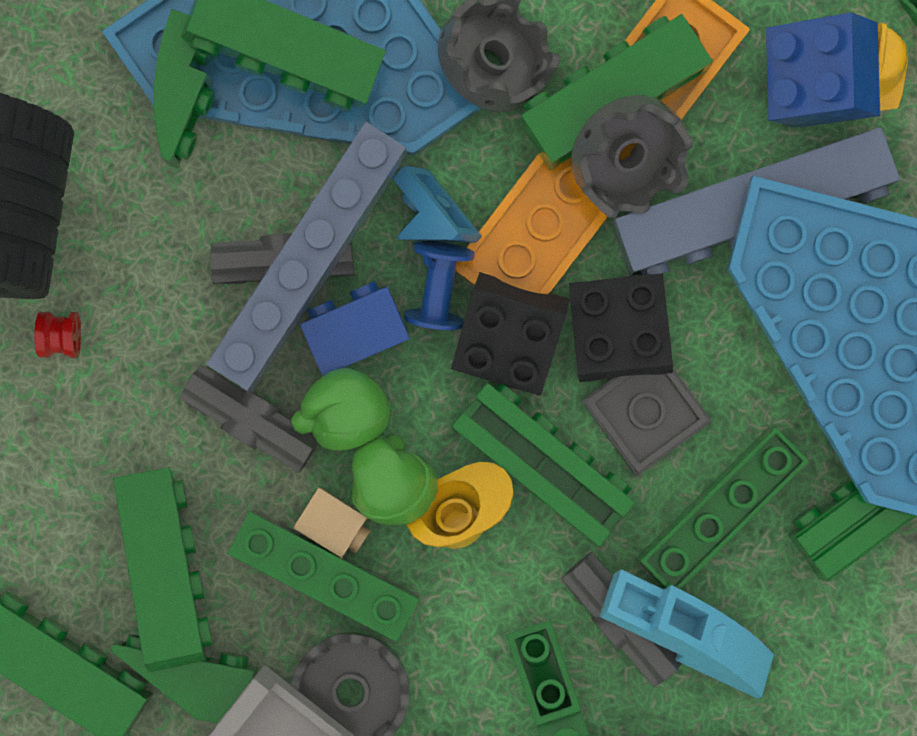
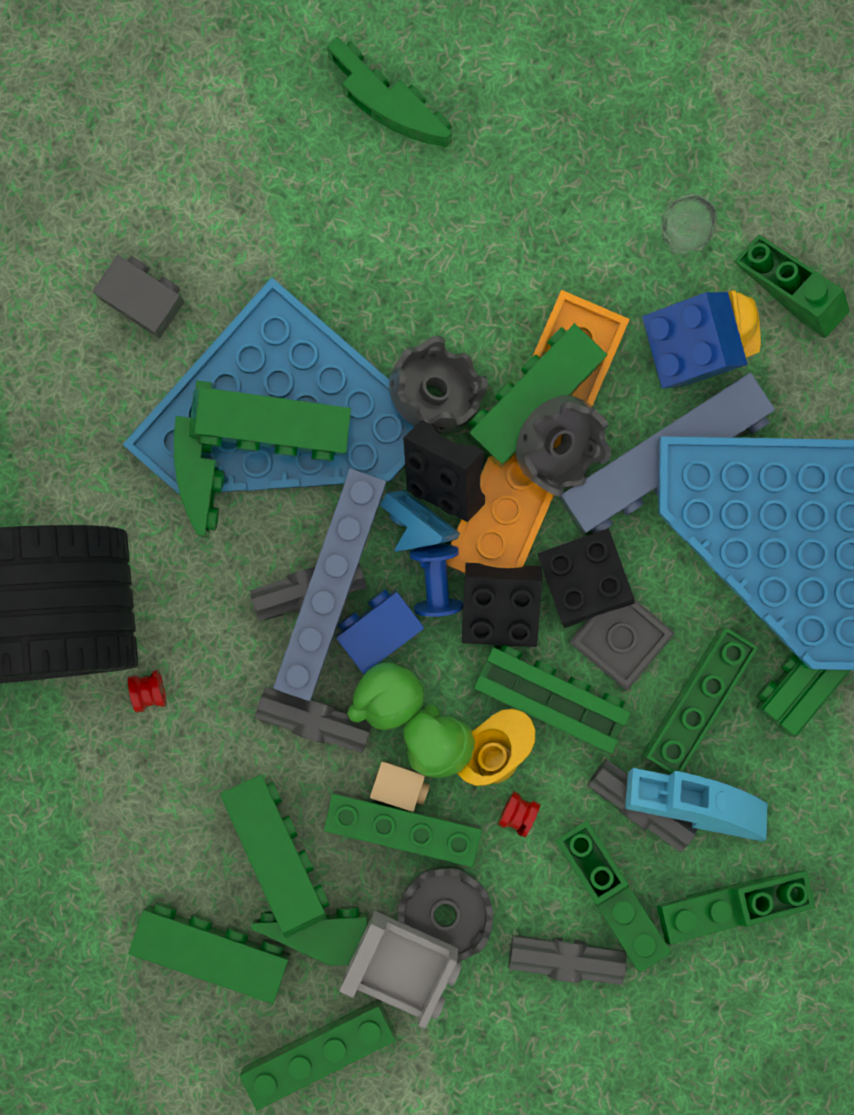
camera: 15 degrees left, 0 degrees up
(469, 593) = (519, 814): none -> red wheel
(479, 155) = (443, 471): none -> black brick

